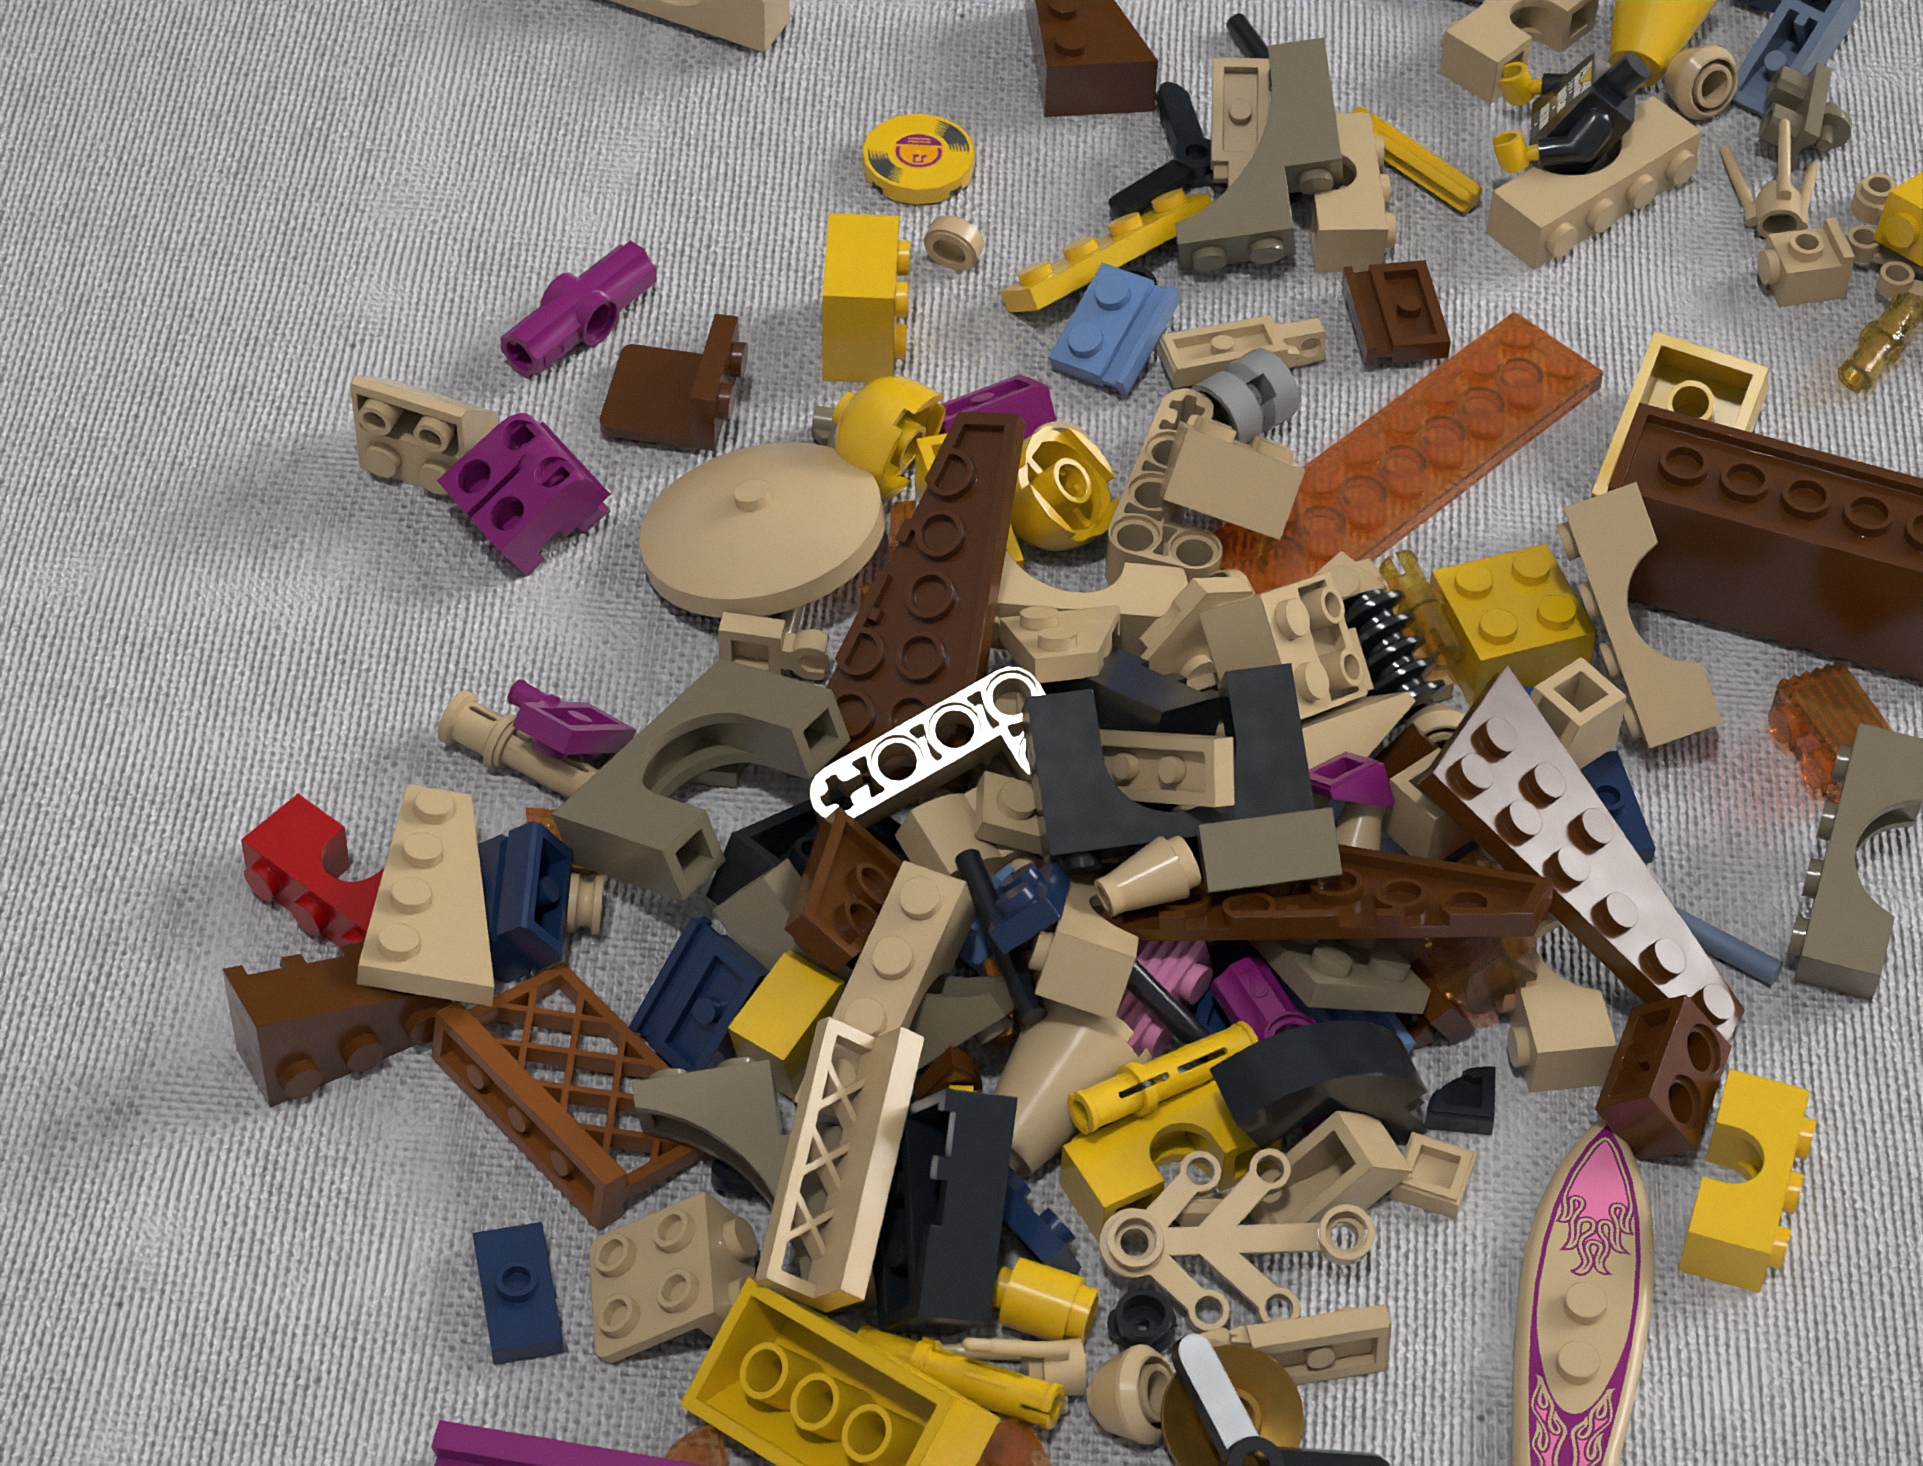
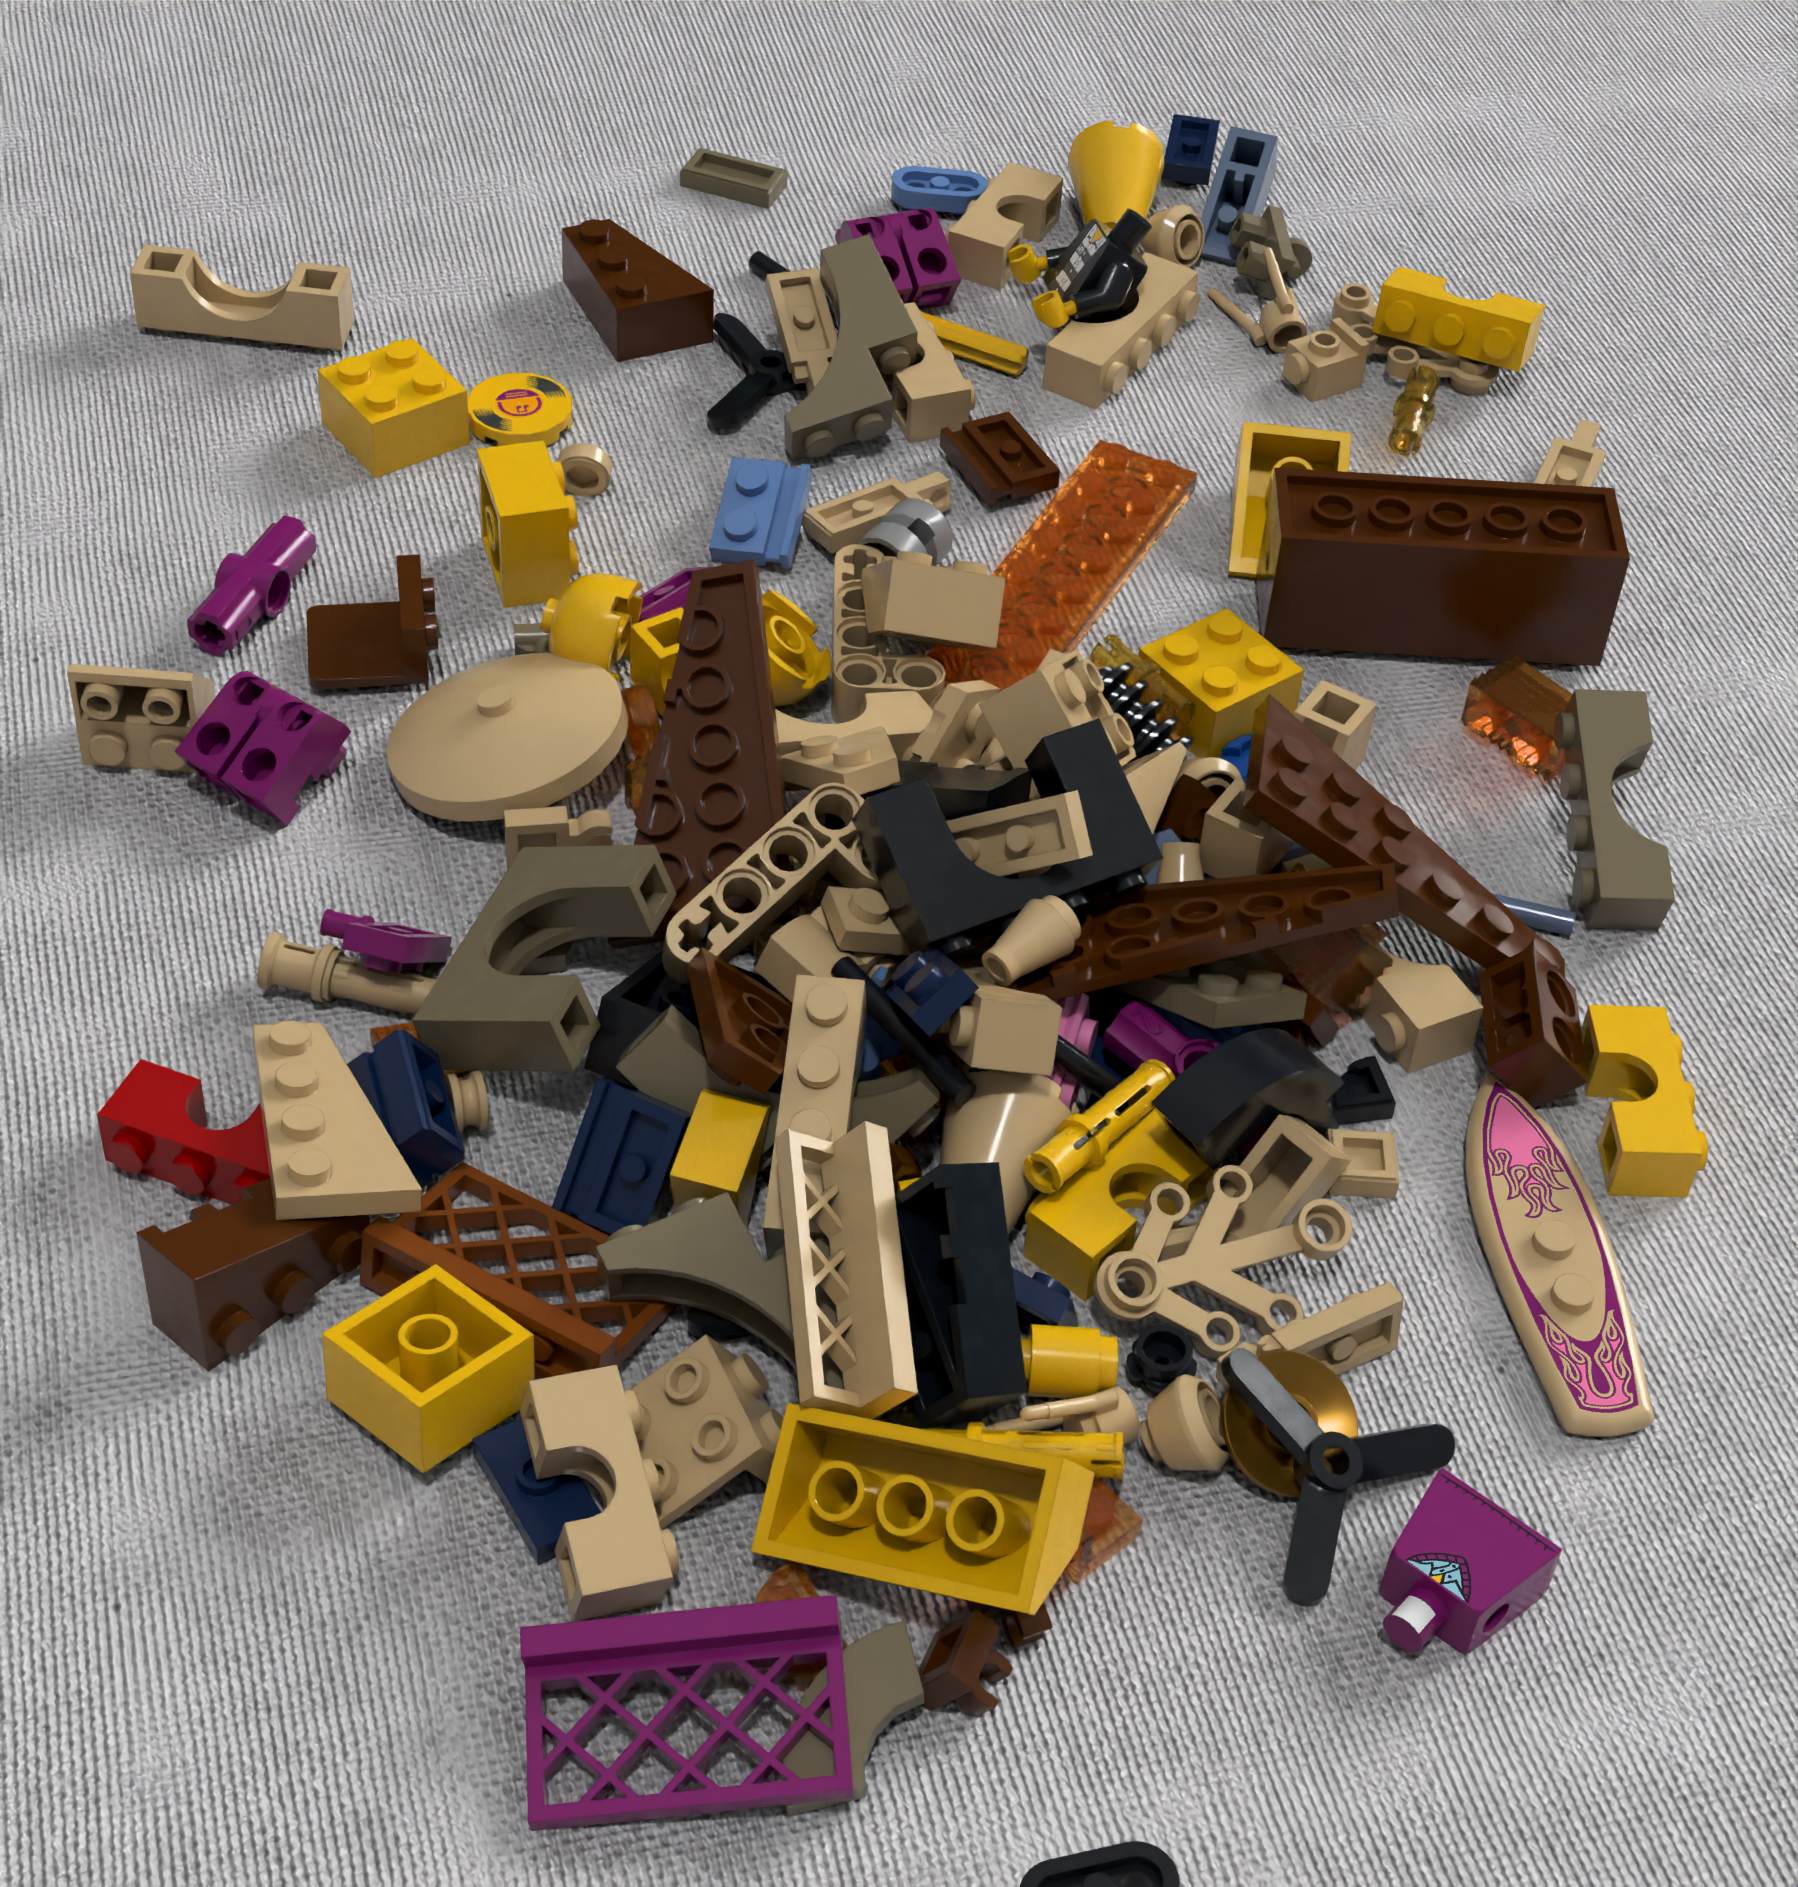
camera: 20 degrees left, 5 degrees down
(452, 1156) = (428, 1367): none -> yellow brick
(554, 1375) = (589, 1430): none -> tan arch
(786, 134) = (393, 407): none -> yellow brick
(1127, 239) = (712, 460): yellow plate -> none
(1269, 850) = (1132, 893): dark tan tile -> none
(1352, 780) = (1177, 821): magenta slope -> none
(1381, 40) = (912, 252): none -> magenta hips
(1666, 694) = (1302, 585): tan arch -> none

